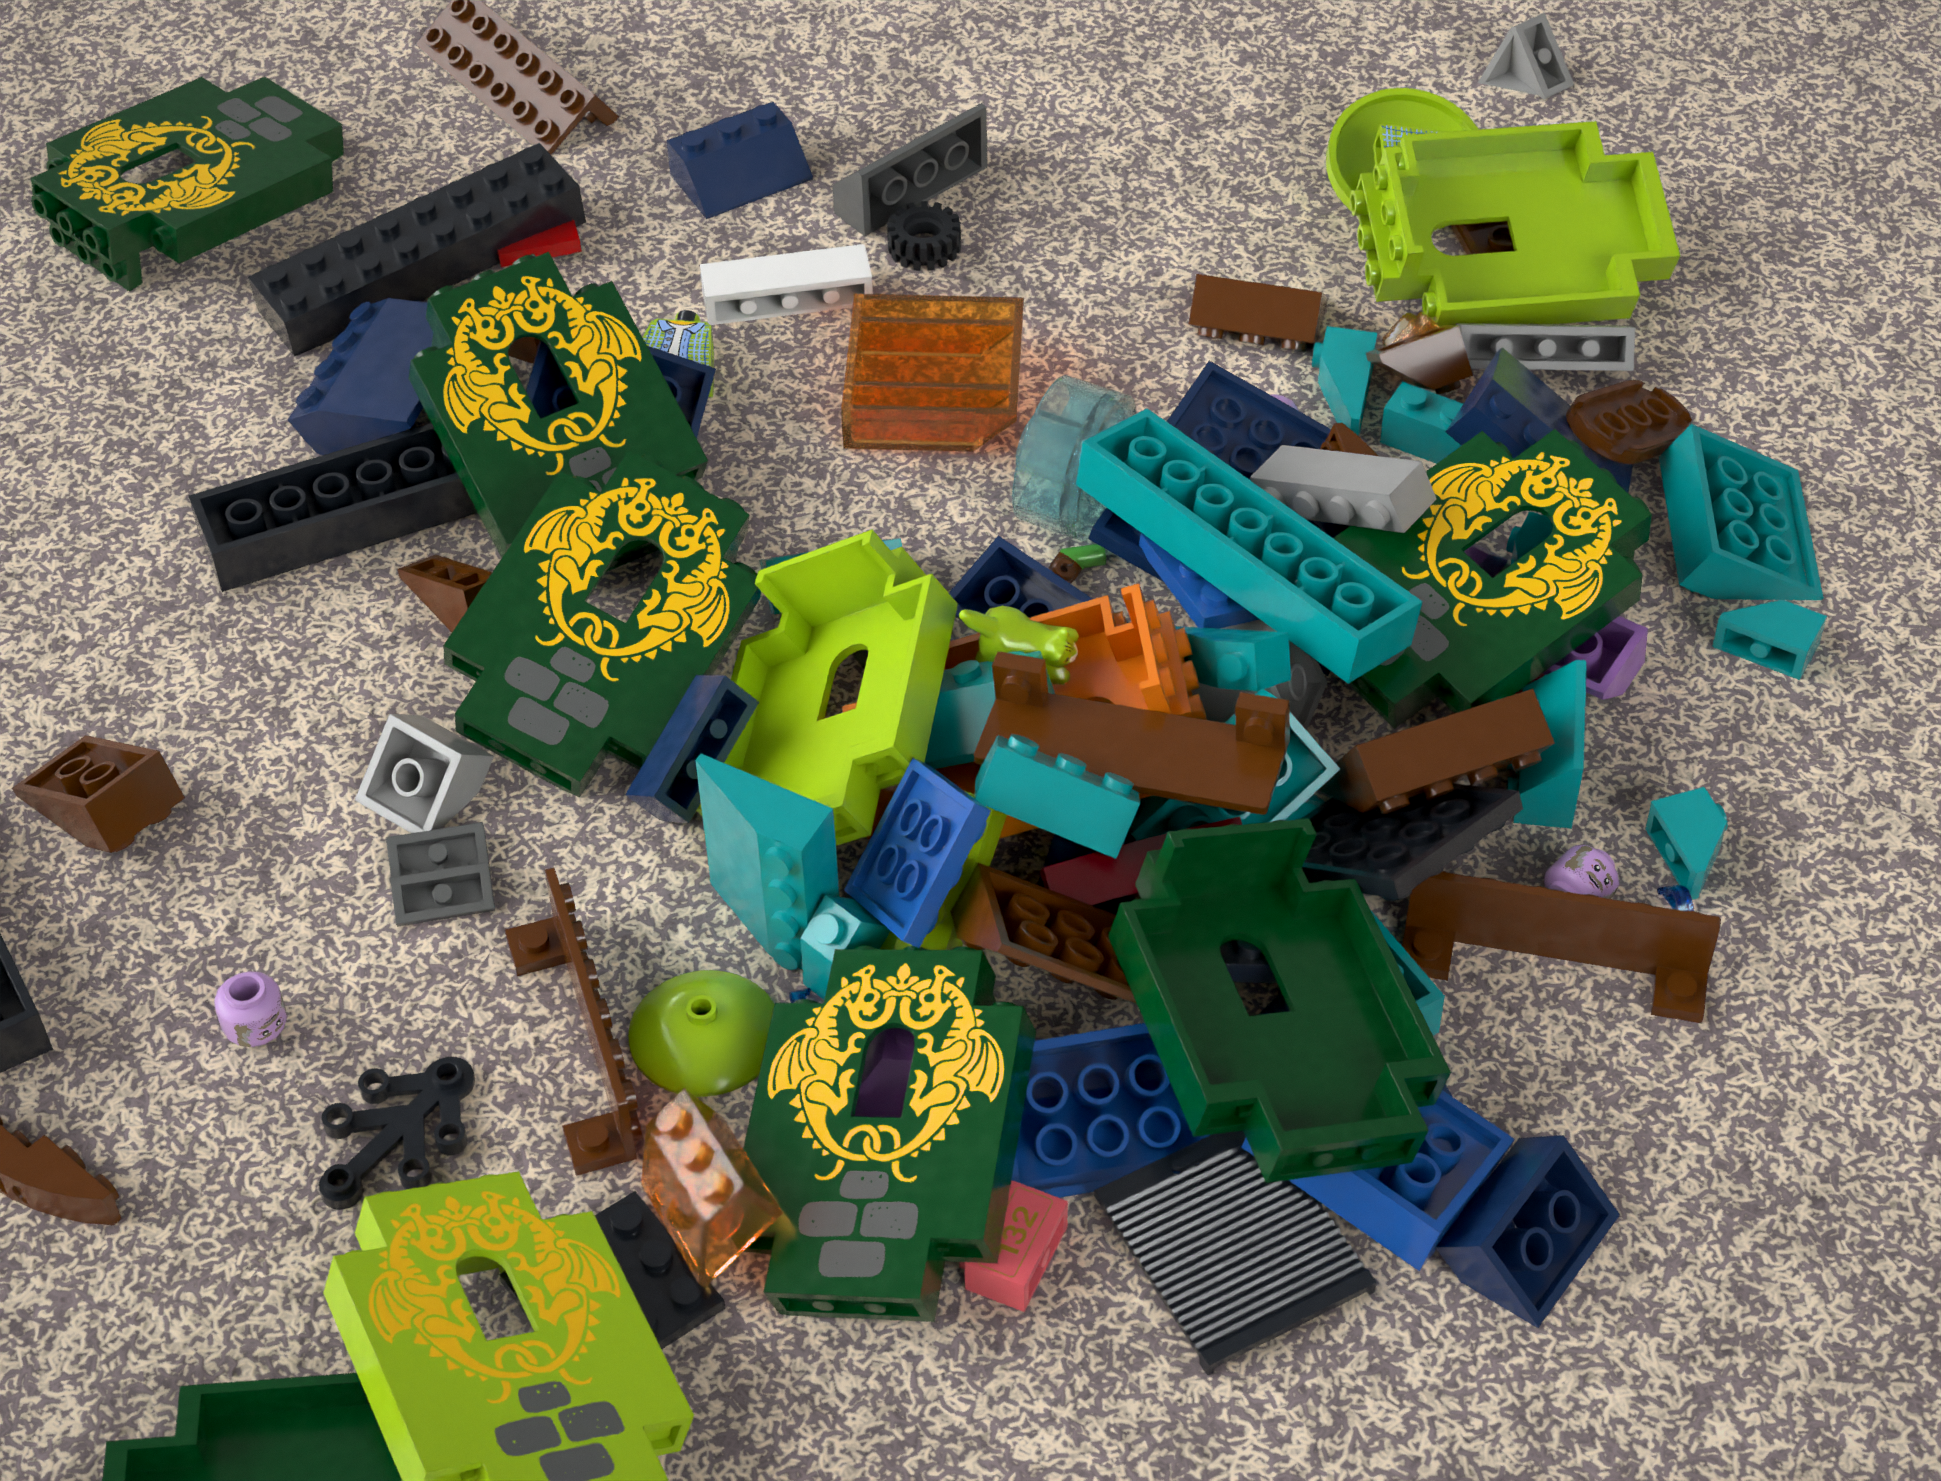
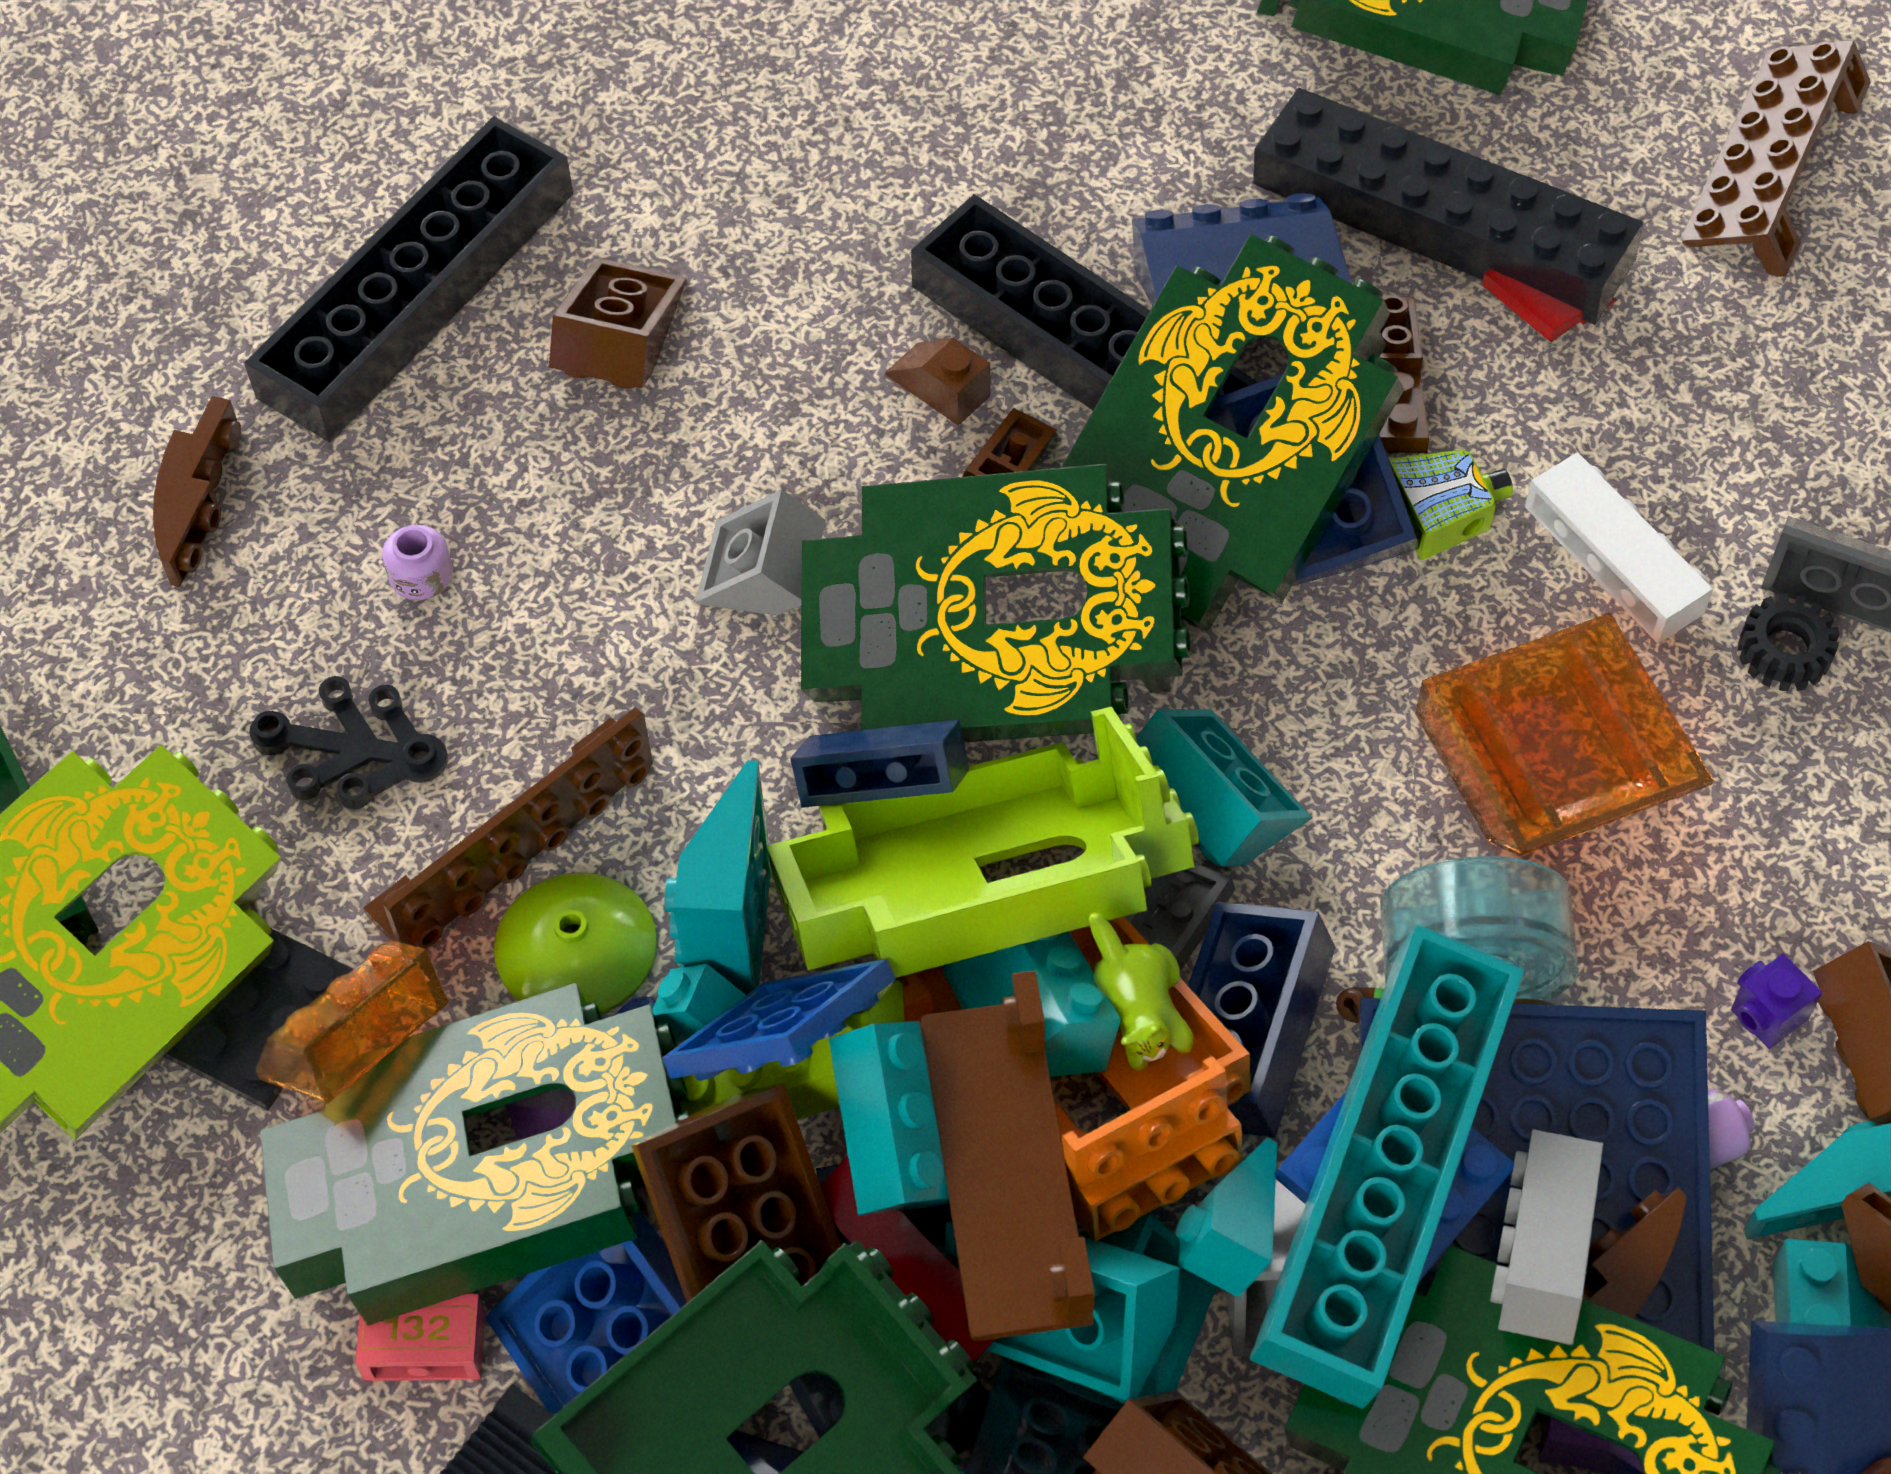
camera: 65 degrees right, 10 degrees up
(332, 597) = (944, 377): none -> reddish brown slope
(440, 874) = (655, 633): dark grey slope -> none
(738, 160) = (1781, 414): dark blue slope -> none
(1195, 345) = (1774, 999): none -> dark purple brick

